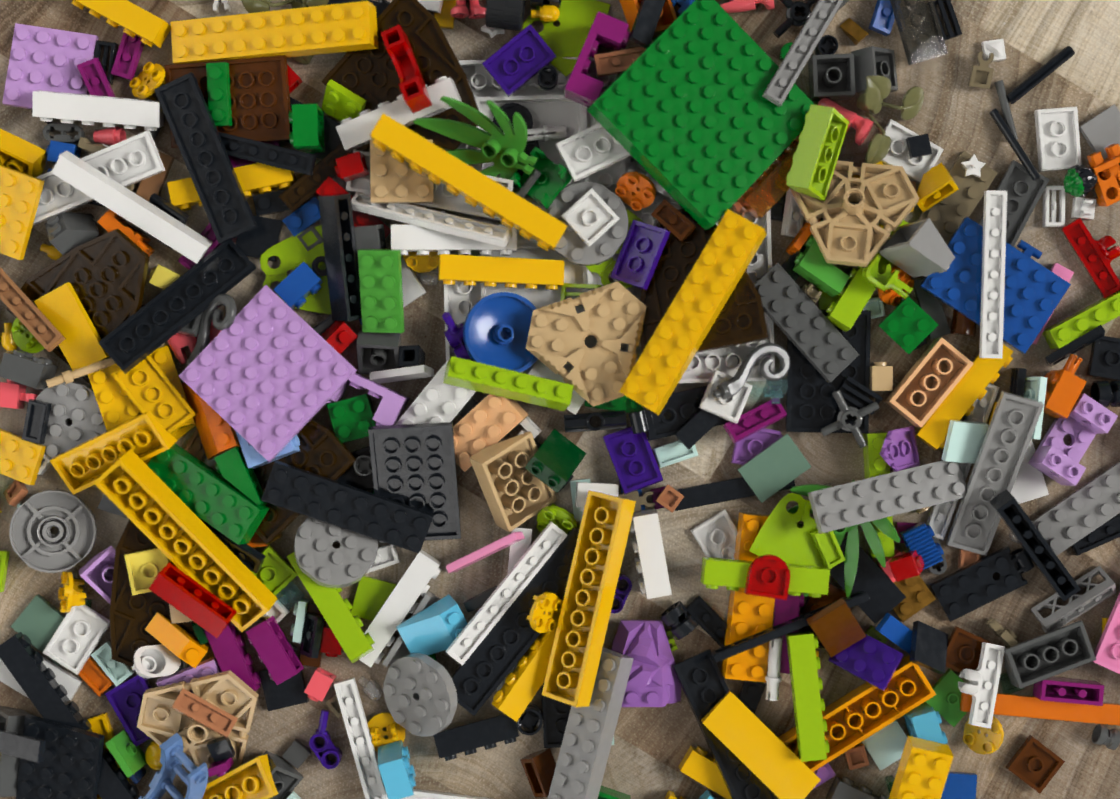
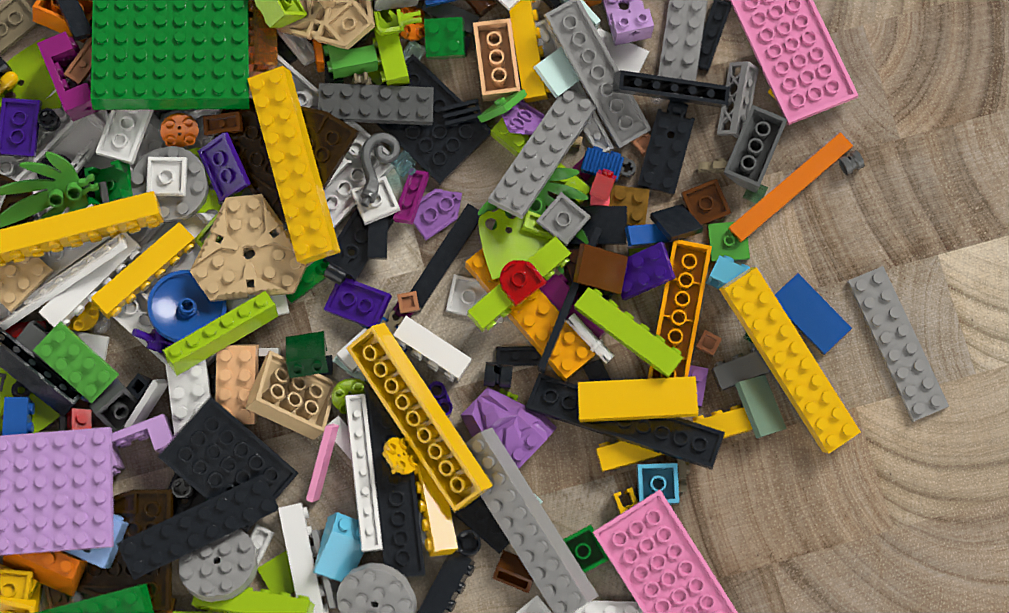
camera: 50 degrees left, 10 degrees down
(235, 470) = (97, 579): green slope -> none
(352, 417) = (143, 467): green brick -> none
(478, 600) = (351, 506): dark grey beam -> none
(581, 421) = (316, 294): black piece -> none
(673, 453) = (382, 272): light aqua tile -> none
(774, 468) = (456, 214): sand green tile -> none
(849, 559) = (563, 219): none -> light grey tile
(857, 421) = (471, 124): dark grey bar -> none
(881, 377) = (463, 88): tan brick -> none
(886, 745) = (716, 315): light aqua tile -> none
(895, 425) = (502, 105): none -> bright green plate
(979, 742) = (767, 233): yellow plate -> none
(983, 684) = (735, 209): white plate -> none
(1035, 764) = (826, 227): reddish brown plate -> none
(1069, 691) = (794, 157): magenta brick -> none

